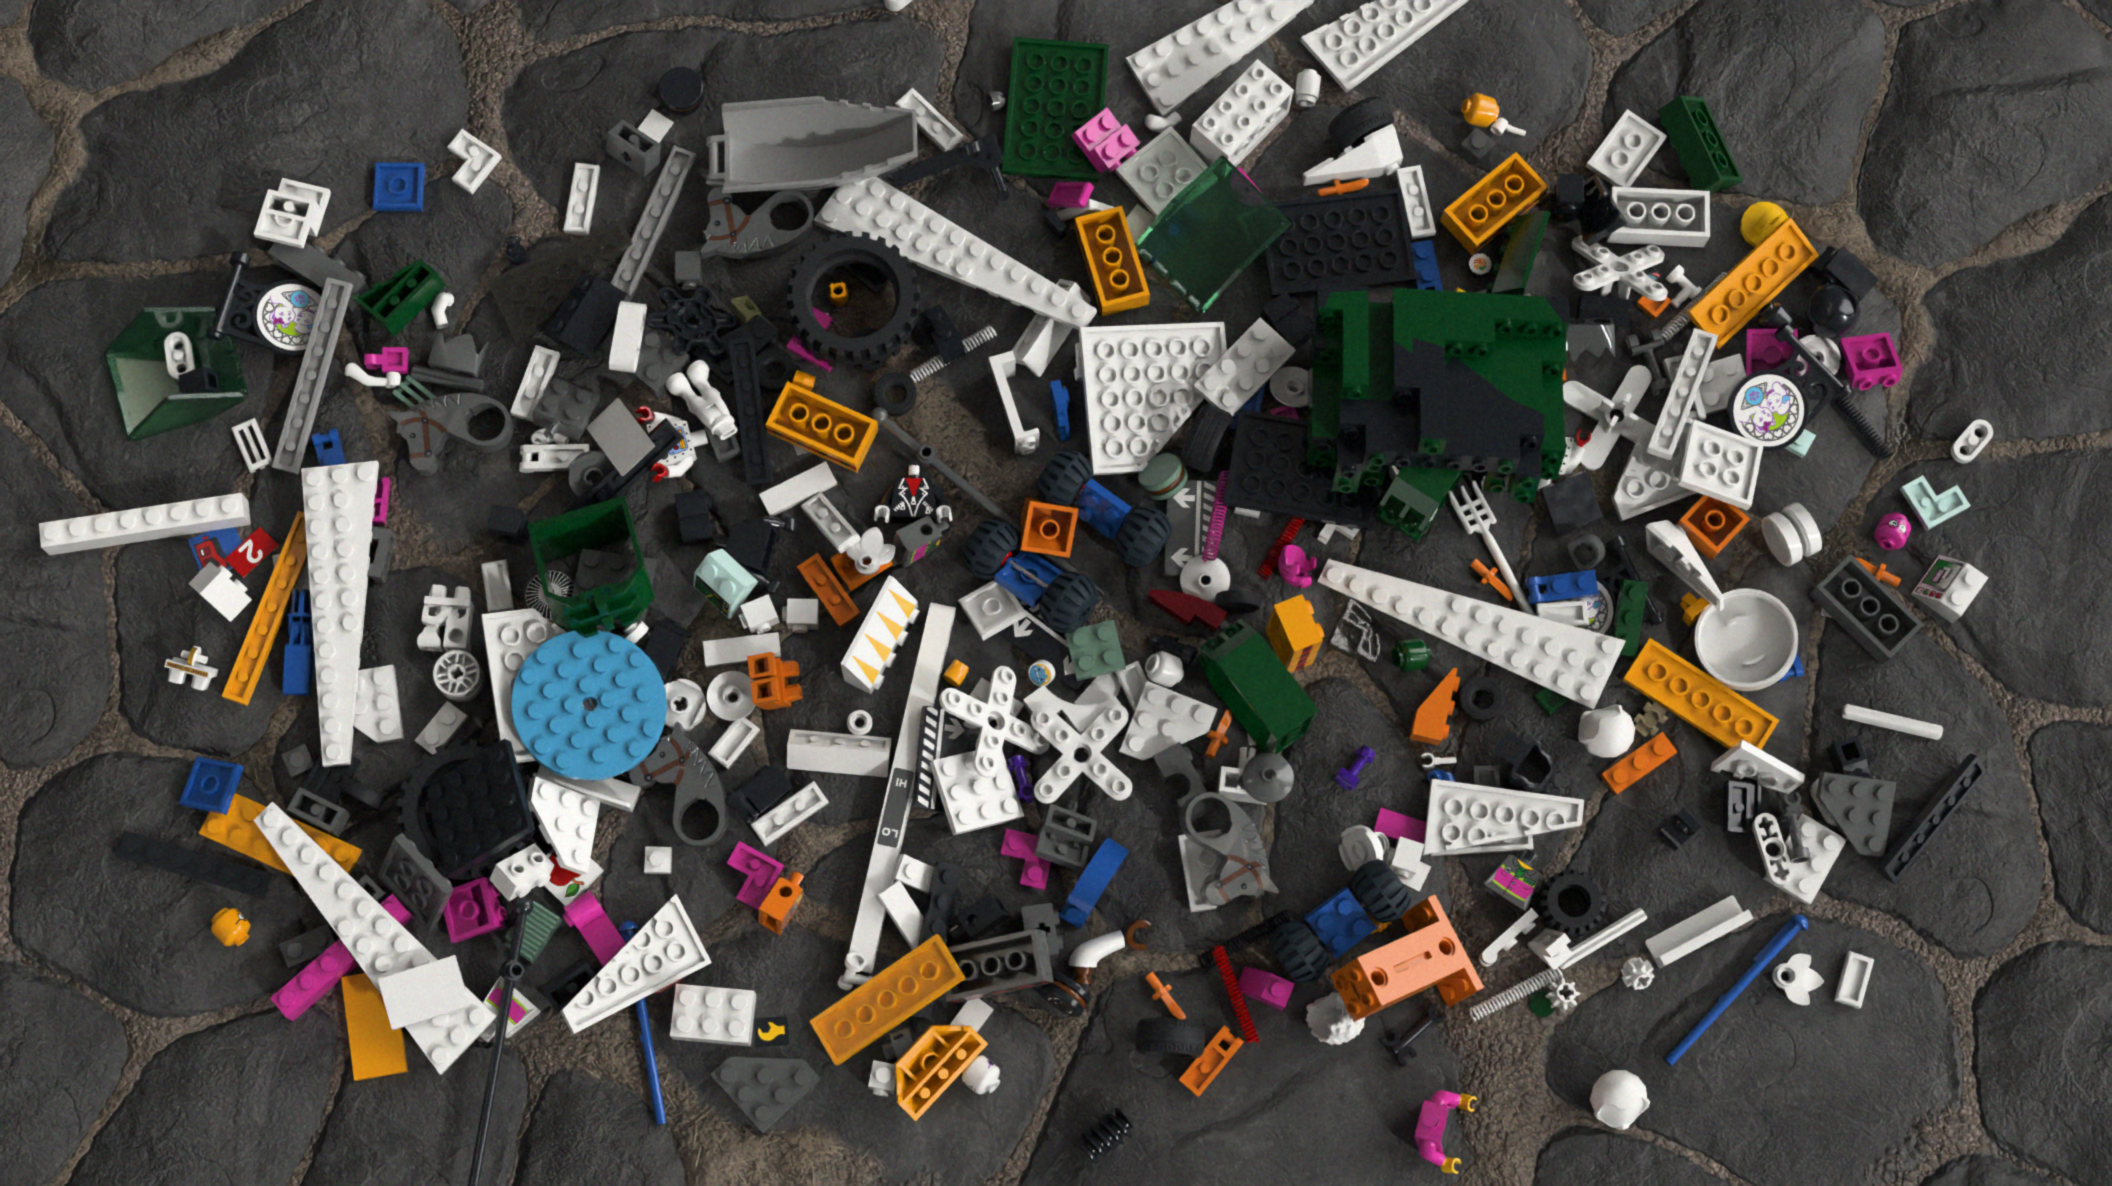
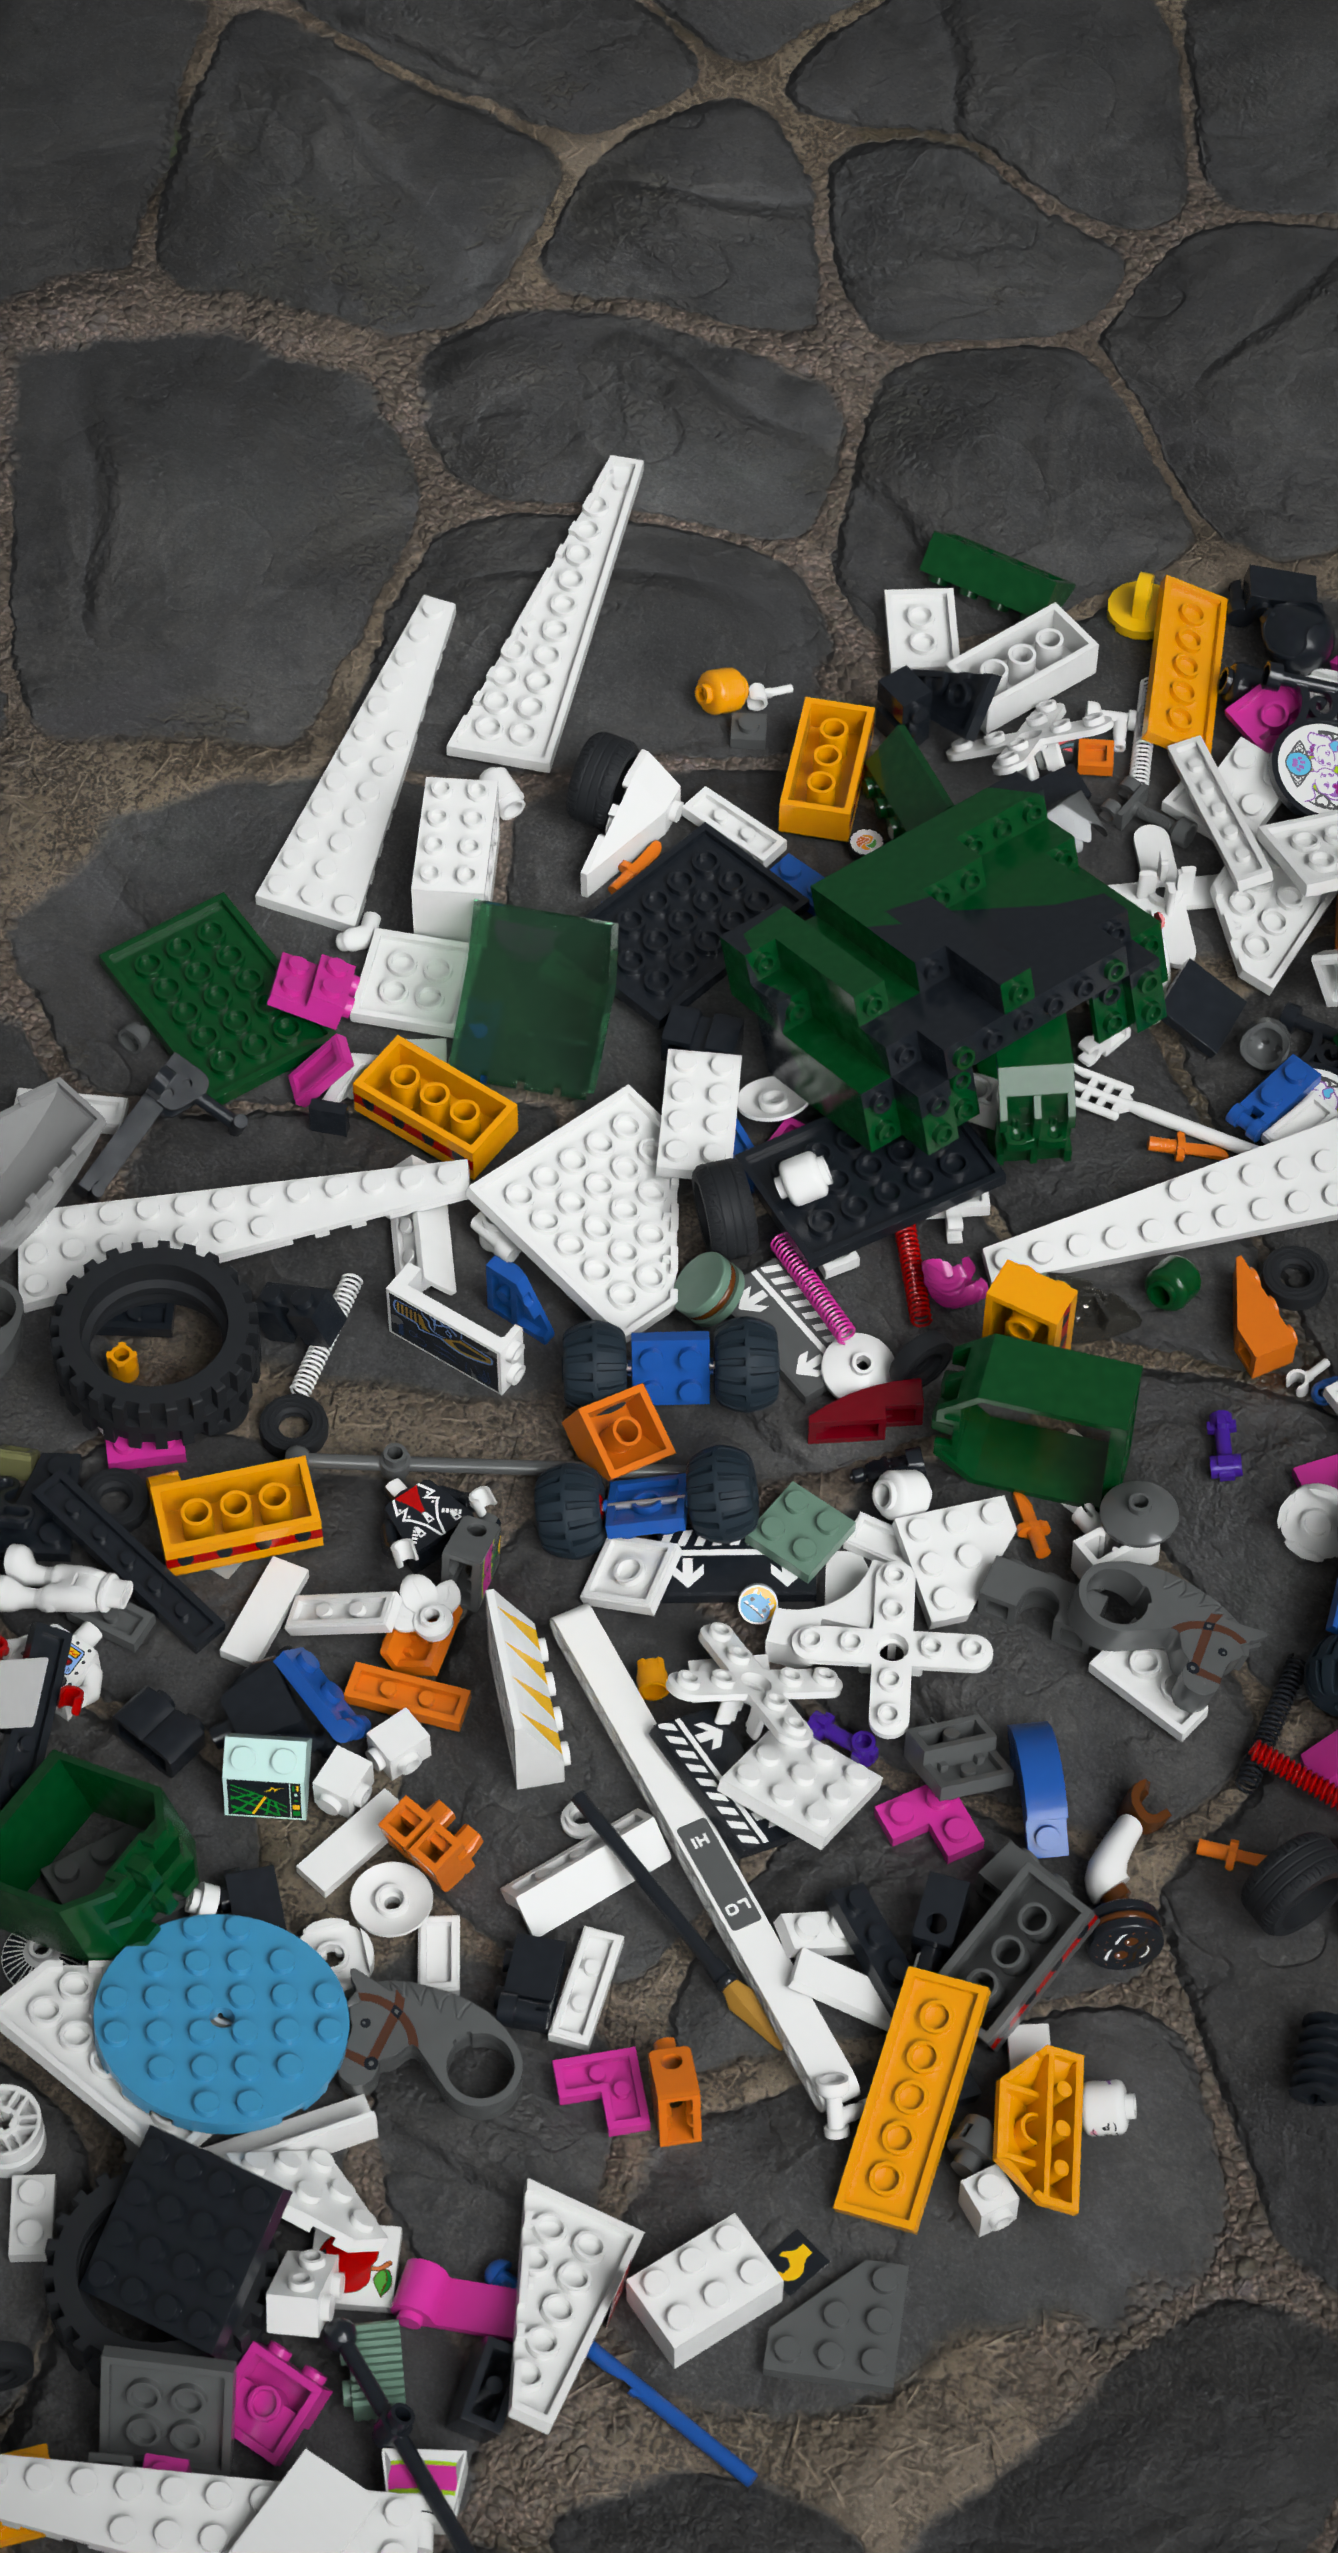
camera: 35 degrees left, 20 degrees down
(658, 860) = (464, 2165): white plate -> none
(783, 561) = (322, 1695): none -> blue plate
(857, 876) = (739, 1997): none -> black piece
(1258, 453) = (803, 1178): none -> white head

